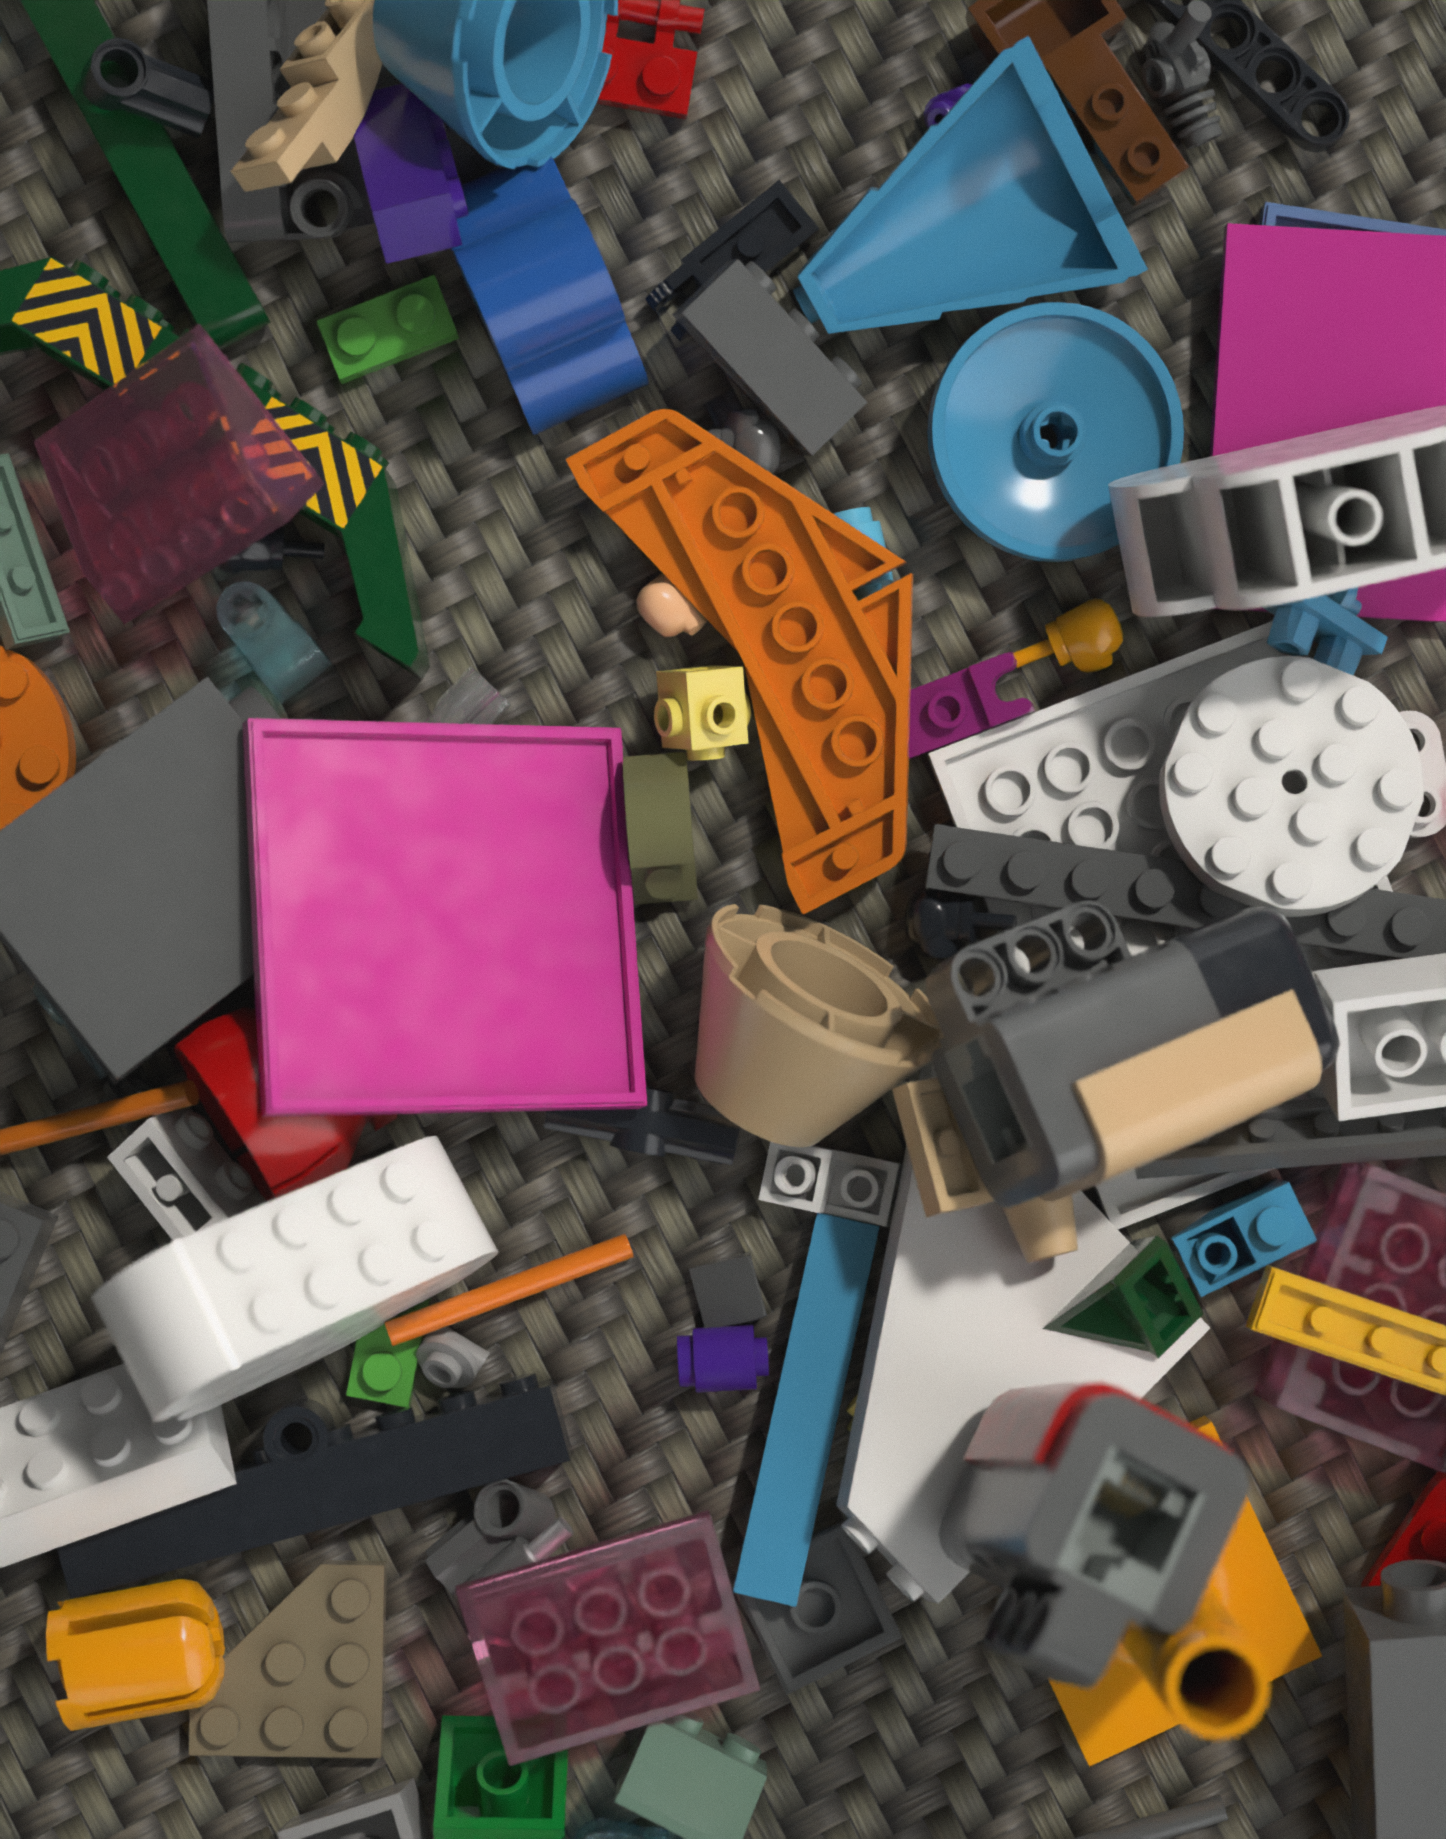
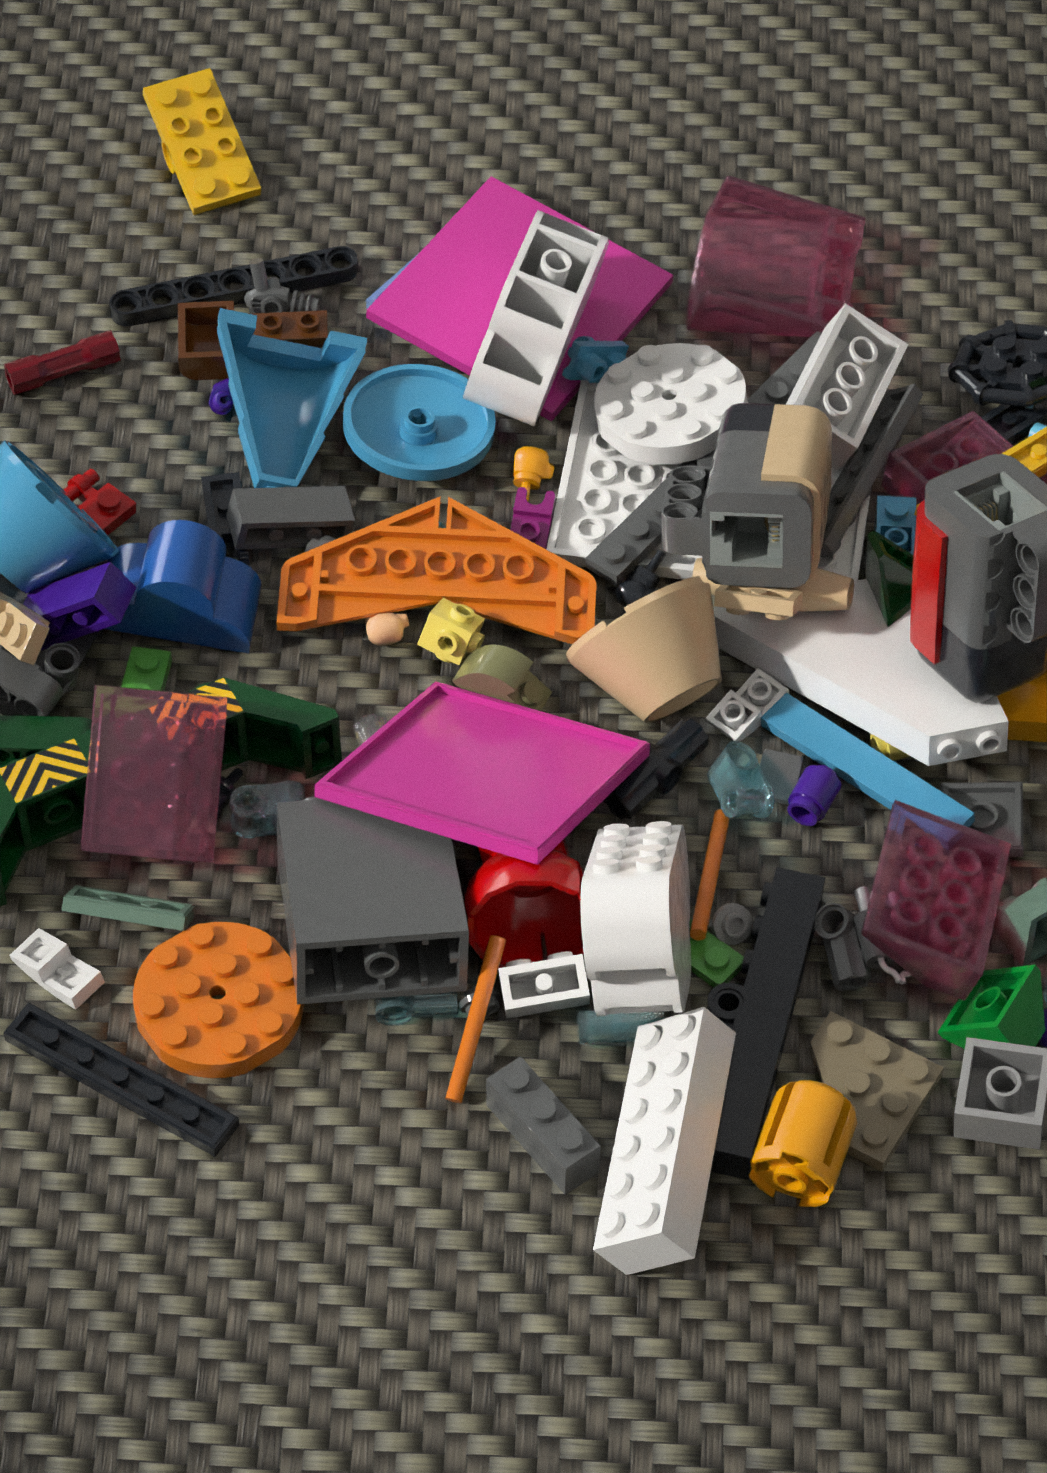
camera: 60 degrees left, 35 degrees down
(672, 1255) = (740, 782): none -> clear light blue piece

